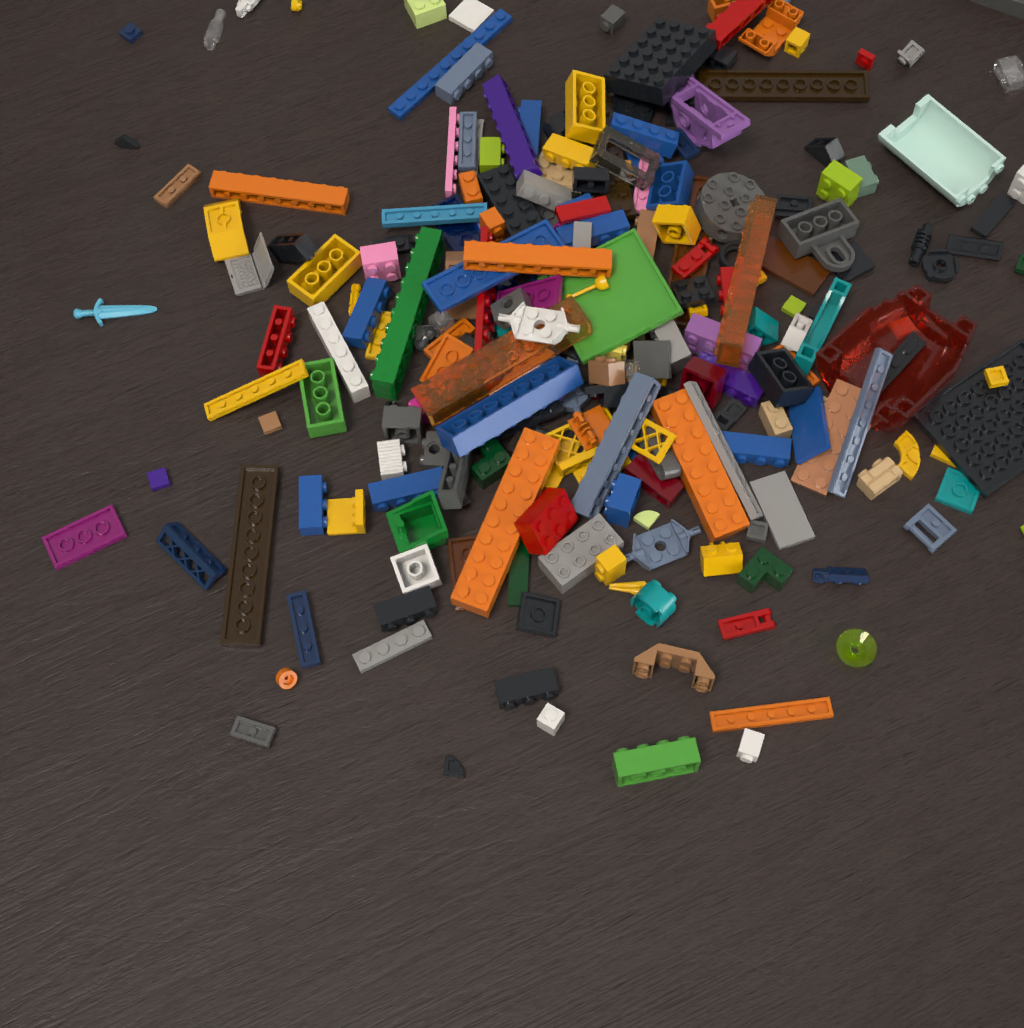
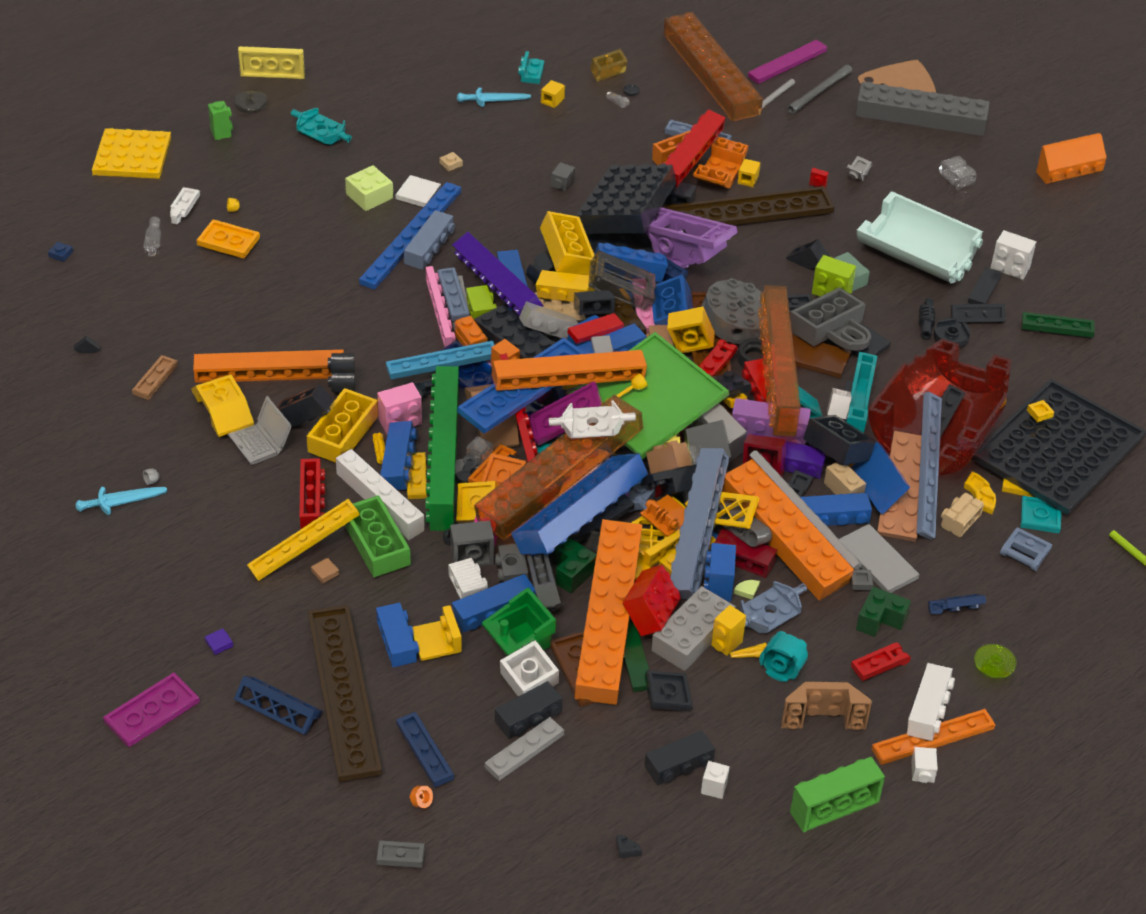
camera: 20 degrees left, 20 degrees down
(145, 293) = (150, 476): none -> light grey hinge
(281, 43) = (228, 238): none -> light orange plate
(340, 213) = (343, 371): none -> black brick
(417, 372) = (468, 496): none -> yellow plate
(508, 304) = (541, 422): dark grey brick -> none
(721, 559) = (836, 607): yellow brick -> none
(777, 680) = (930, 702): none -> white brick
(793, 306) = (825, 387): lime tile -> none

